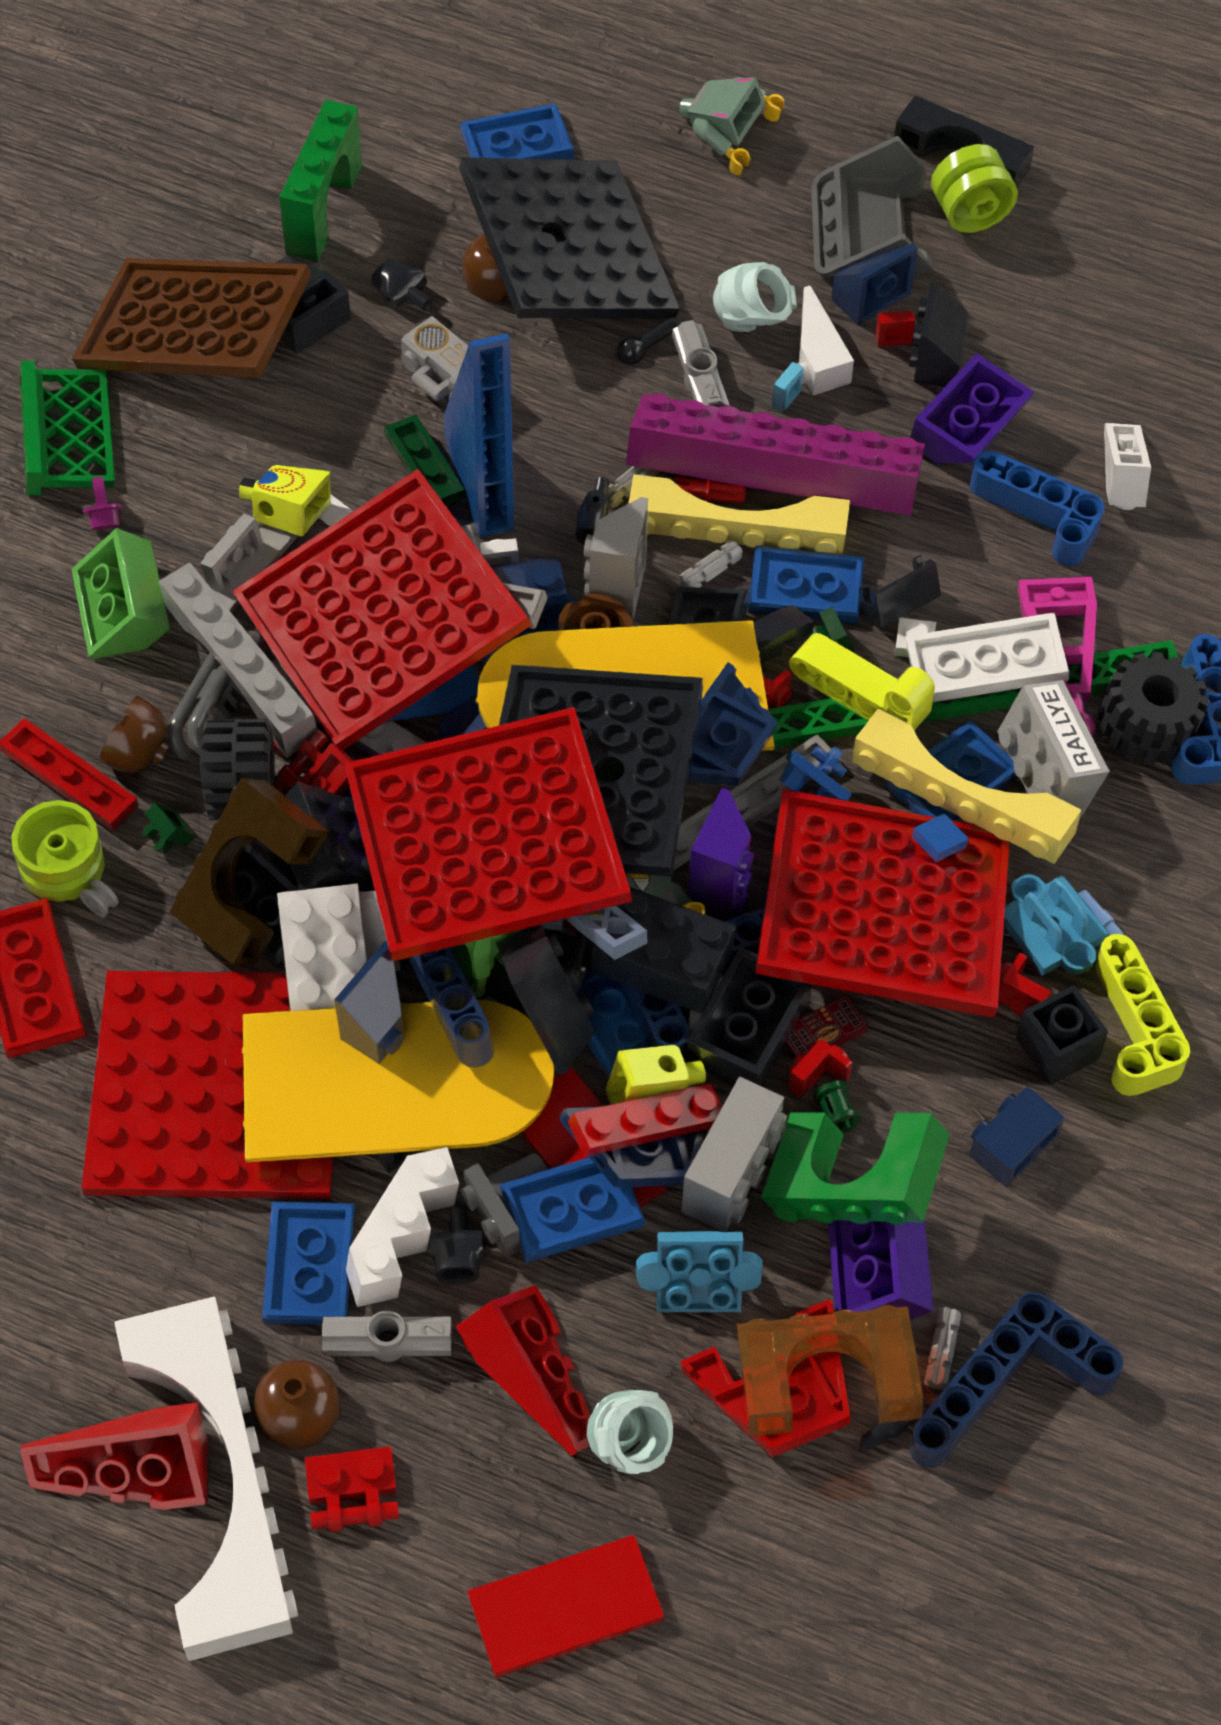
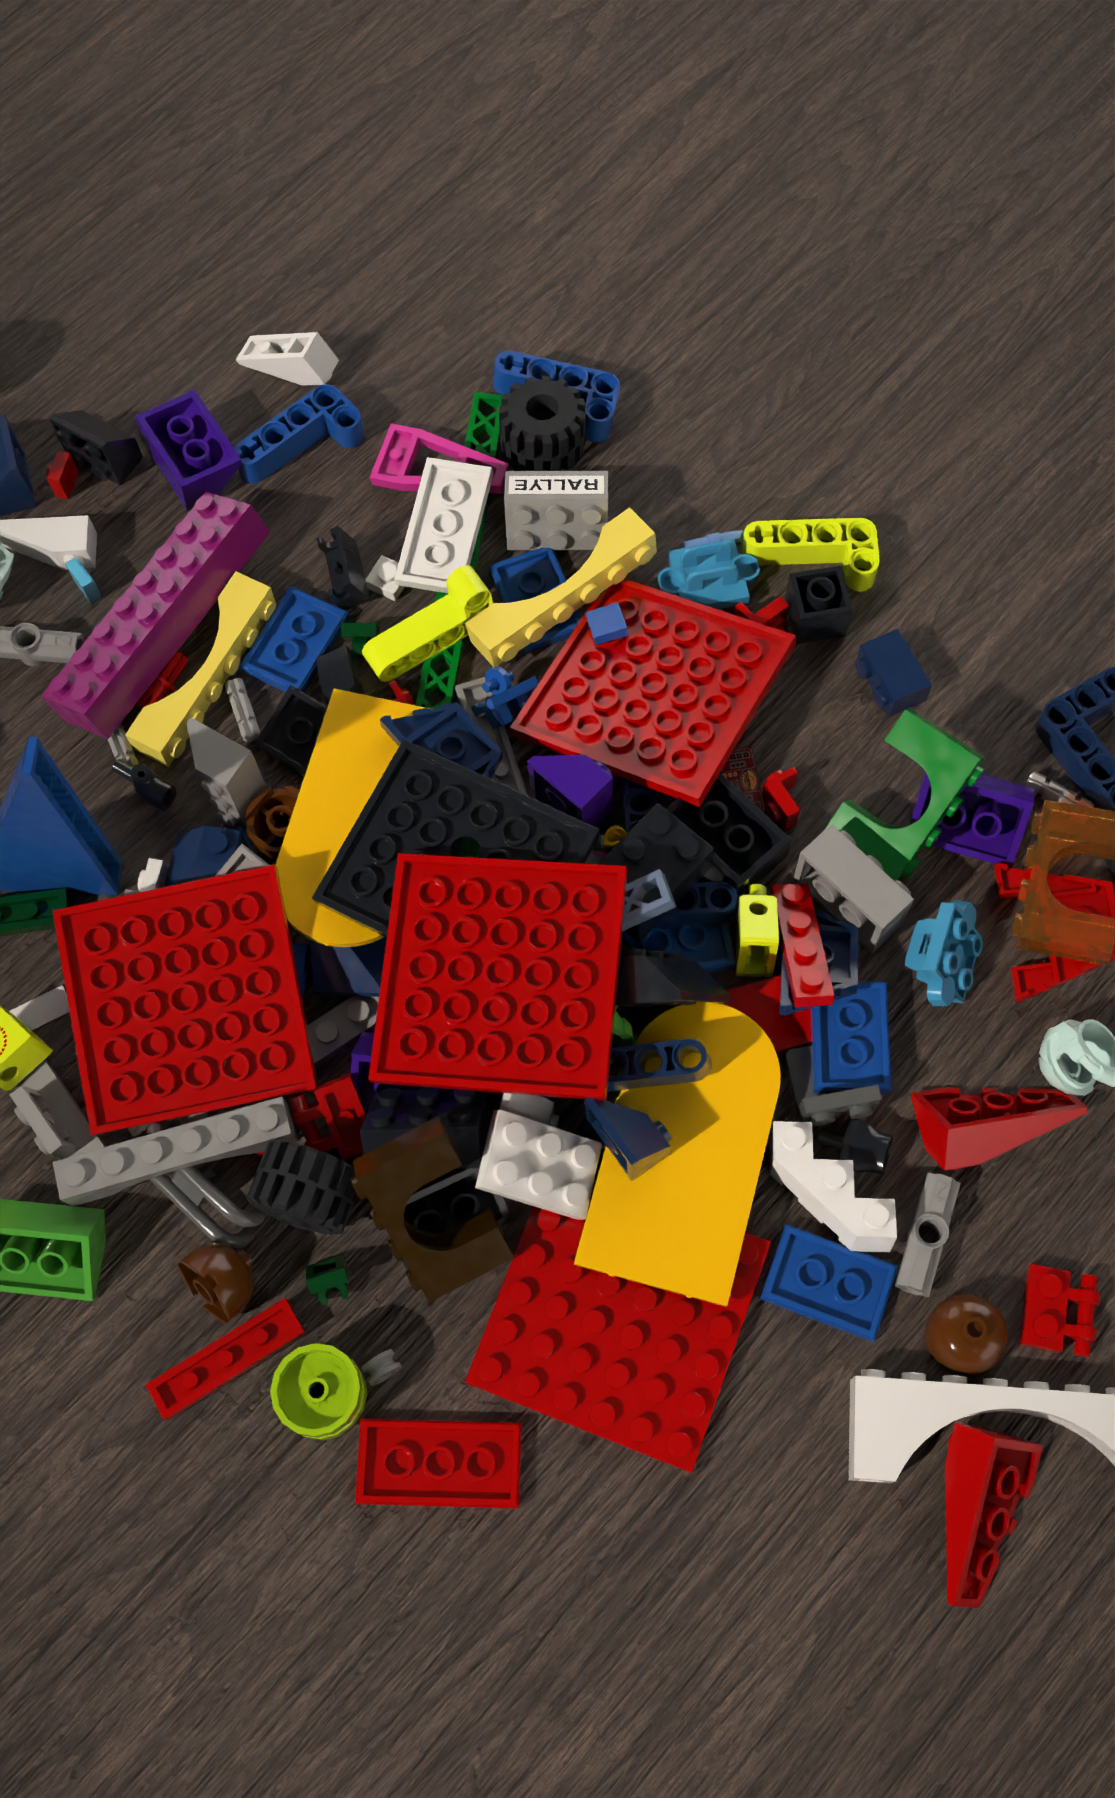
camera: 65 degrees left, 10 degrees up
(837, 1105) = (822, 796): dark green bush -> none

